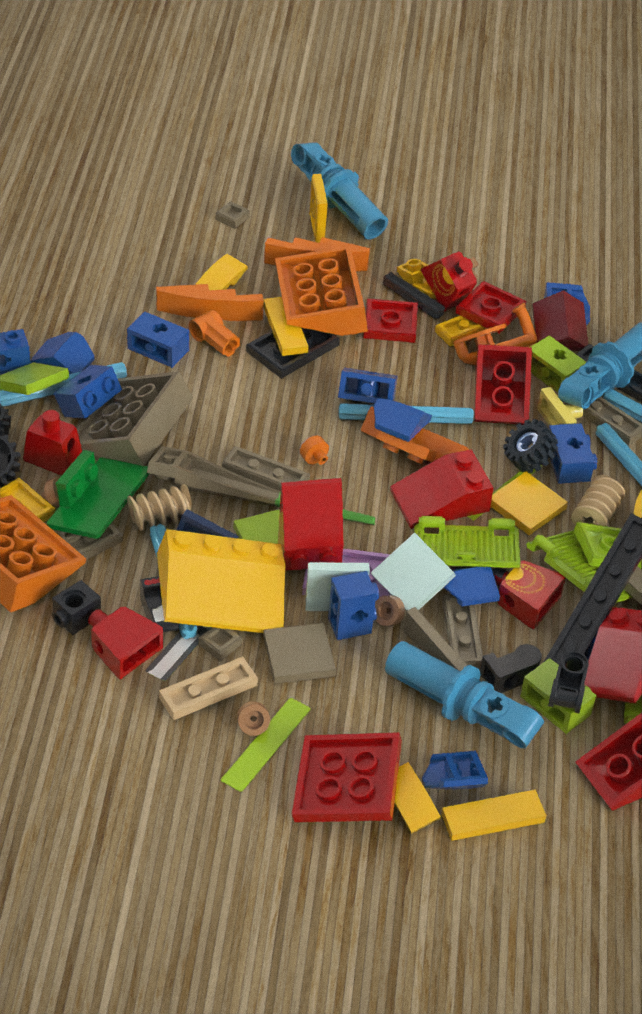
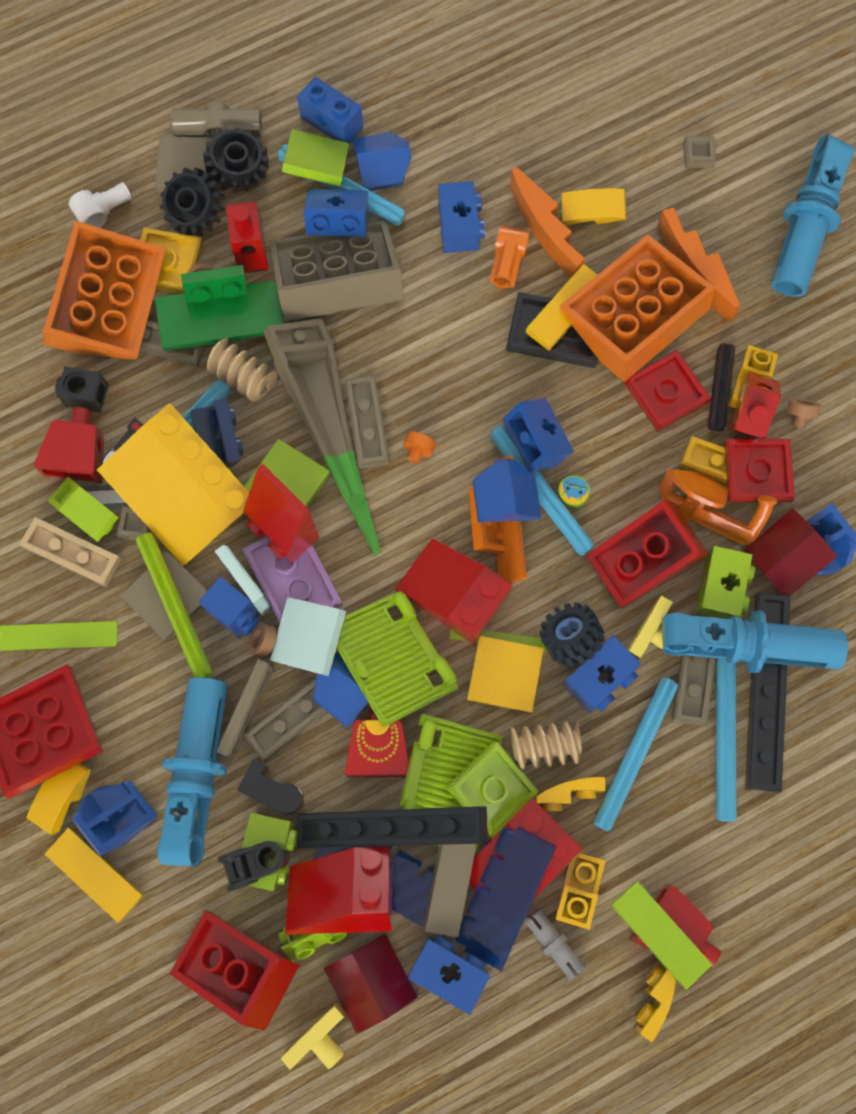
camera: 60 degrees right, 30 degrees up
(187, 654) = (83, 509): none -> lime slope
(256, 724) = (59, 610): medium nougat tile -> none
(315, 642) = (174, 606): none -> lime axle
(318, 207) = (760, 219): yellow tile -> none
(422, 397) = (573, 491): none -> tile

